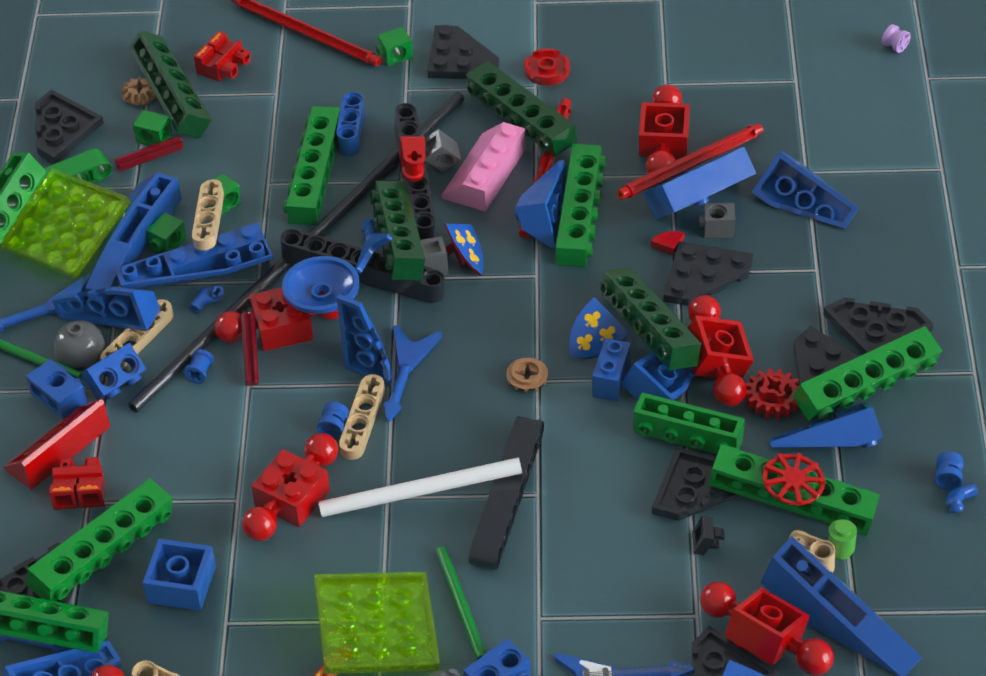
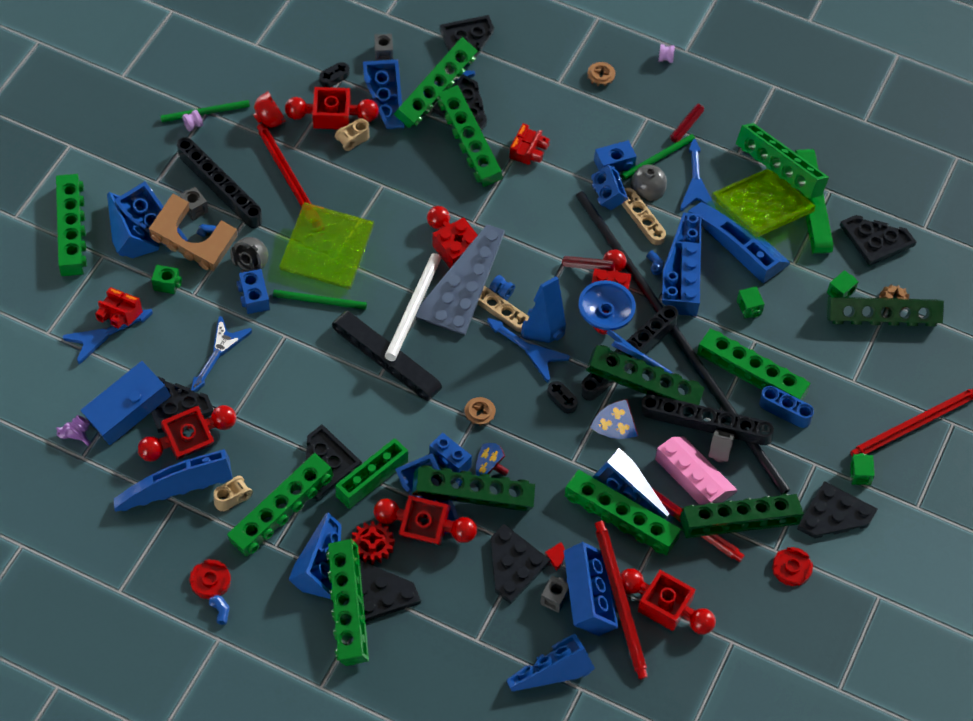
camera: 110 degrees right, 10 degrees up
(59, 443) = (569, 146): red slope -> none
(110, 307) = (662, 201): blue wedge -> none
(149, 153) = (820, 279): dark red axle -> none
(166, 233) = (727, 259): green brick -> none
(179, 574) = (422, 165): blue brick -> none
(199, 365) = (593, 236): blue bush -> none
(208, 214) = (717, 277): tan beam -> none
(220, 57) = (905, 354): red hips -> none
(360, 446) = (458, 292): none -> sand blue wing
(412, 156) = (710, 409): red piece -> none
(435, 254) = (613, 392): dark grey brick -> none
(452, 309) = (562, 397): none -> black beam
(706, 536) = (280, 444): black tile -> none
(793, 478) = (278, 495): red wheel -> none
(843, 536) = (227, 513): bright green brick -> none
(873, 323) = (395, 642): black plate -> none
(930, 527) = (210, 579): none -> red tile
(949, 470) = (242, 611): blue wheel -> none

